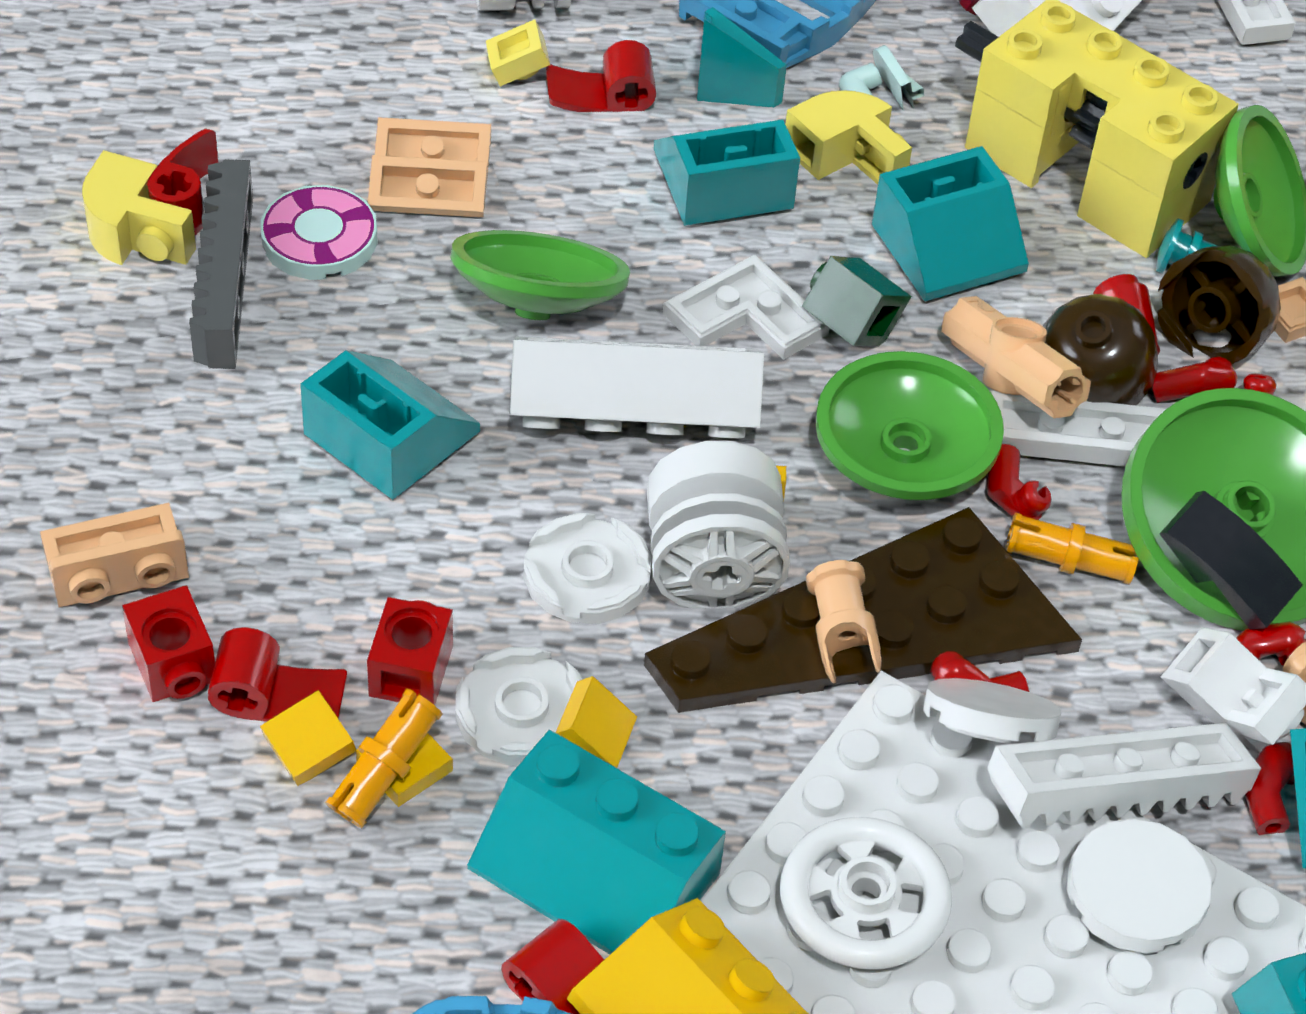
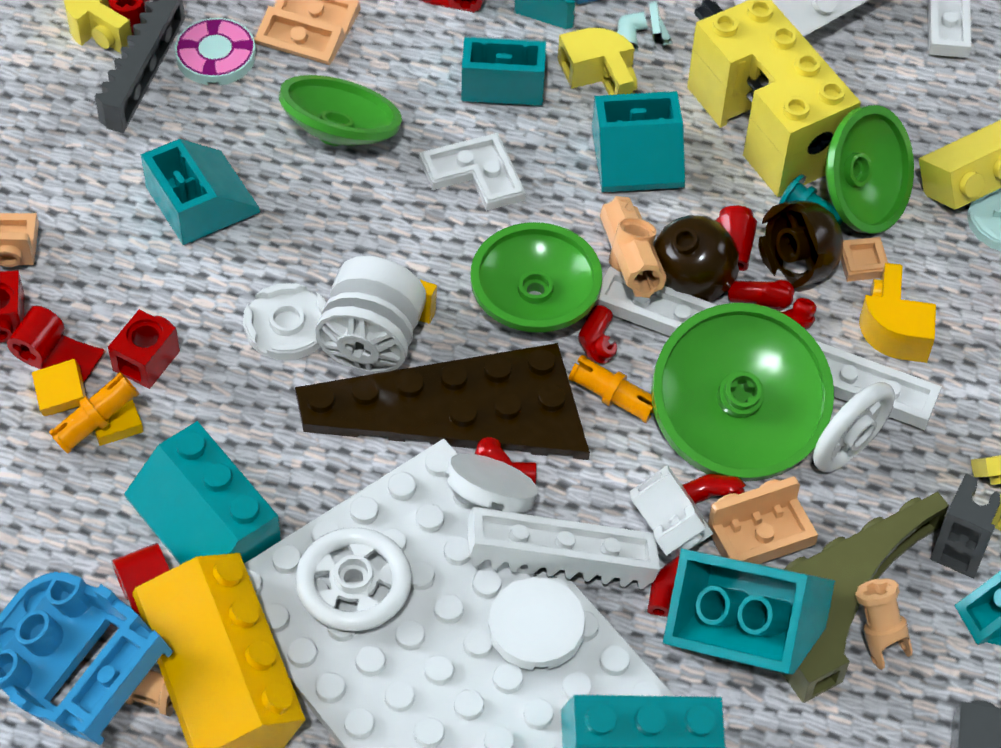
camera: 20 degrees right, 5 degrees up
(512, 726) = (216, 412): white tile -> none
(597, 721) = (240, 426): yellow tile -> none
(636, 383) = (370, 204): white slope -> none
(842, 612) = (427, 395): light nougat piece -> none
(855, 300) = (545, 182): brick -> none
(1226, 550) = (707, 423): black slope -> none

